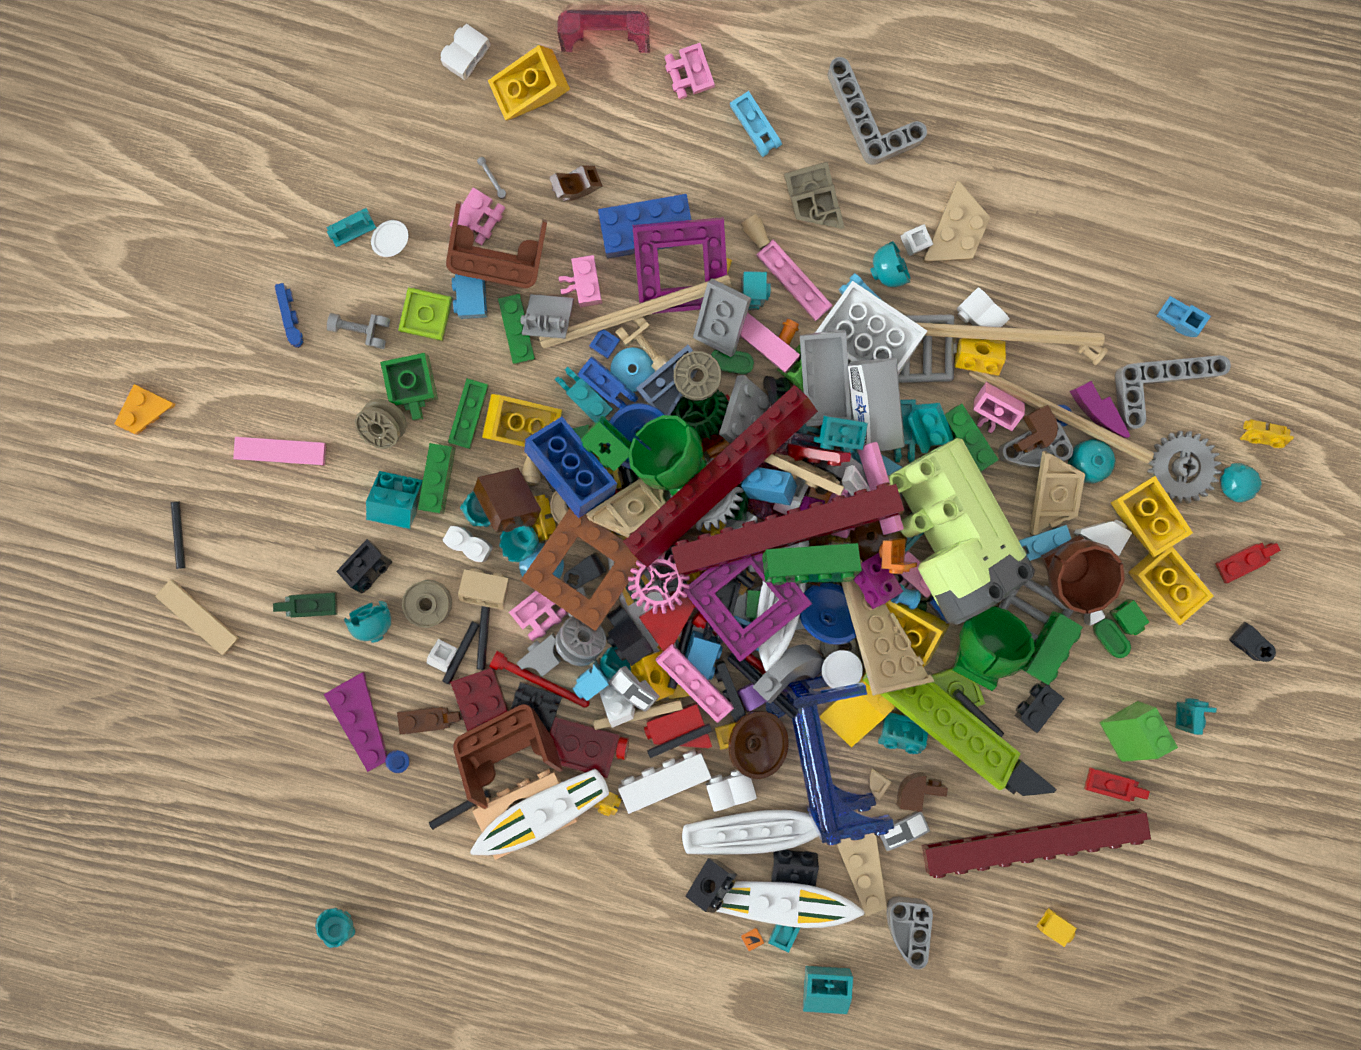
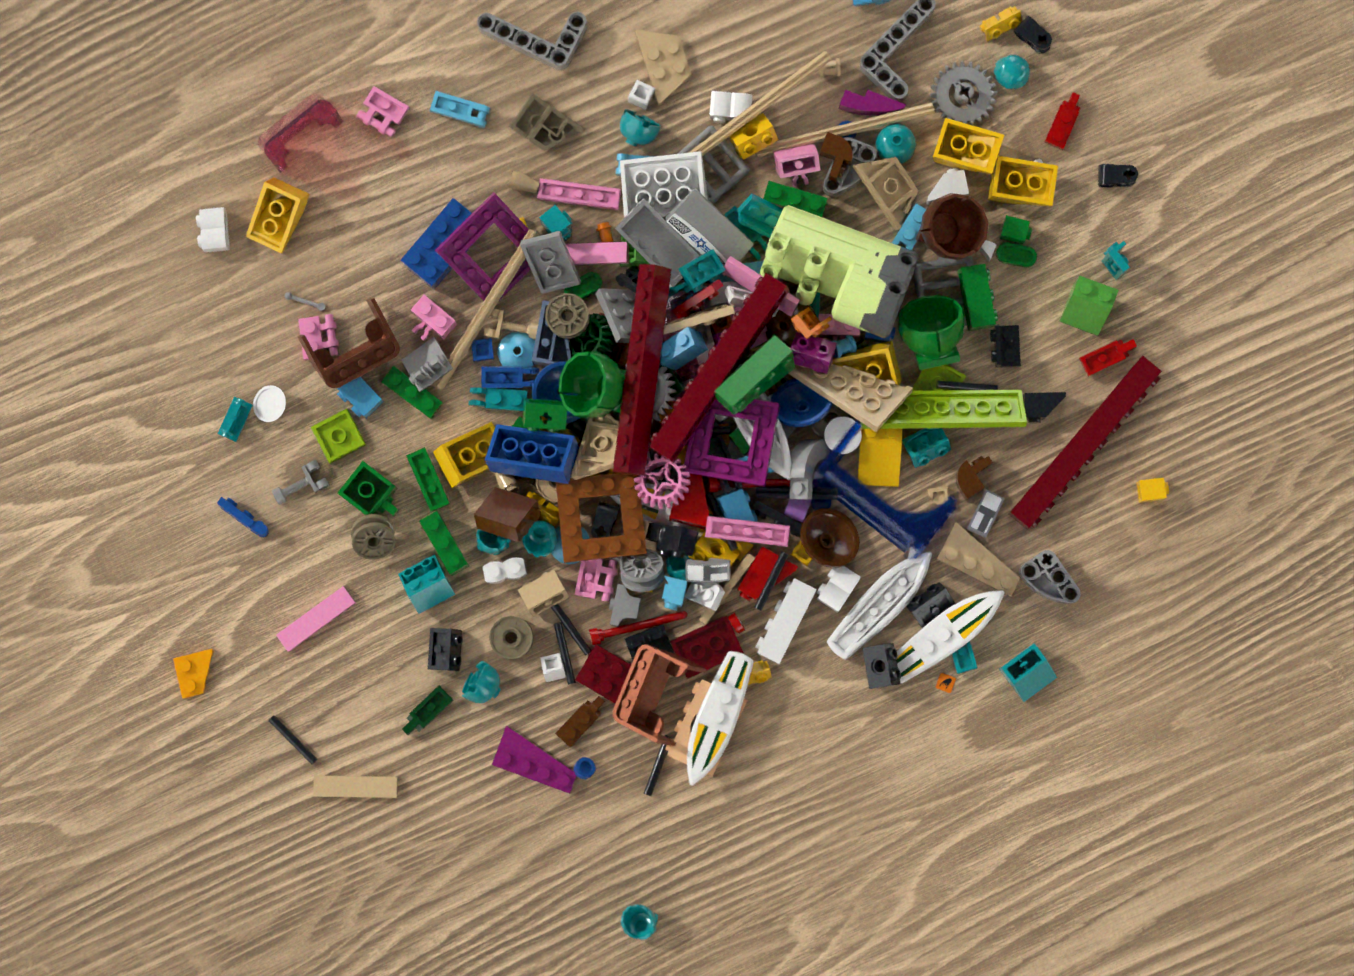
camera: 30 degrees left, 5 degrees down
(576, 183) = (369, 255): reddish brown brick -> none
(1285, 464) = (1031, 33): none -> black piece

